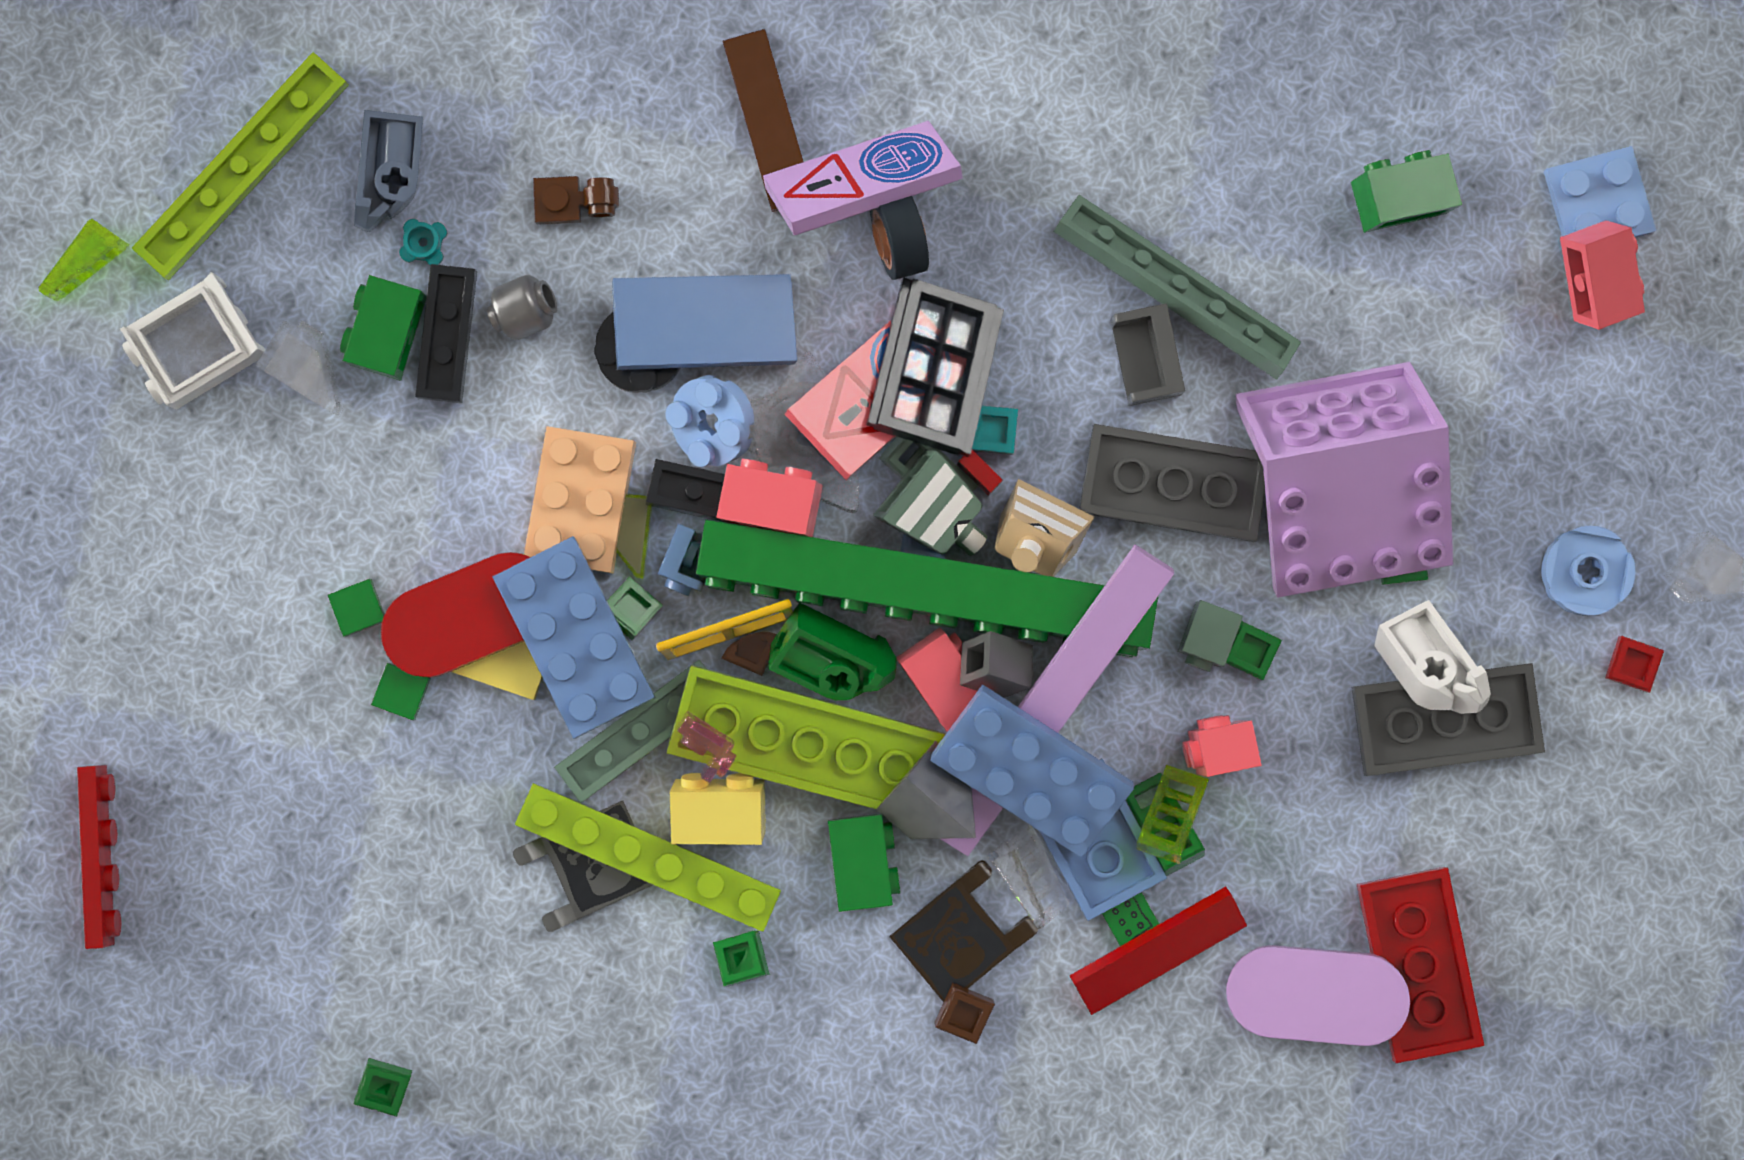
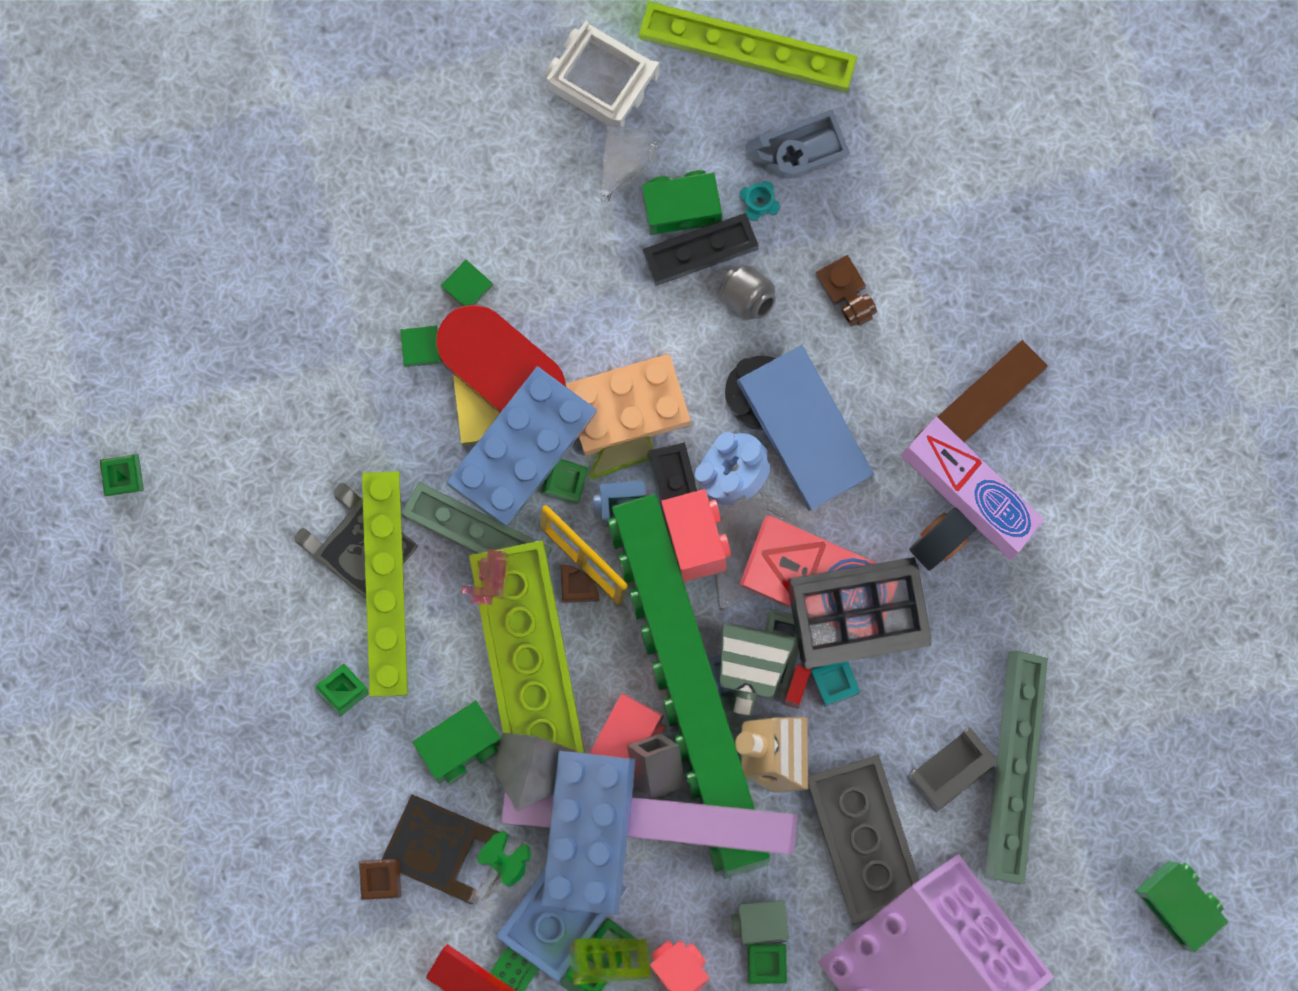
camera: 70 degrees right, 10 degrees down
(98, 873) = (207, 185): red plate -> none
(718, 811) = (444, 616): light yellow brick -> none
(830, 656) = (602, 642): green piece -> none
(1028, 872) = (510, 867): none -> green piece

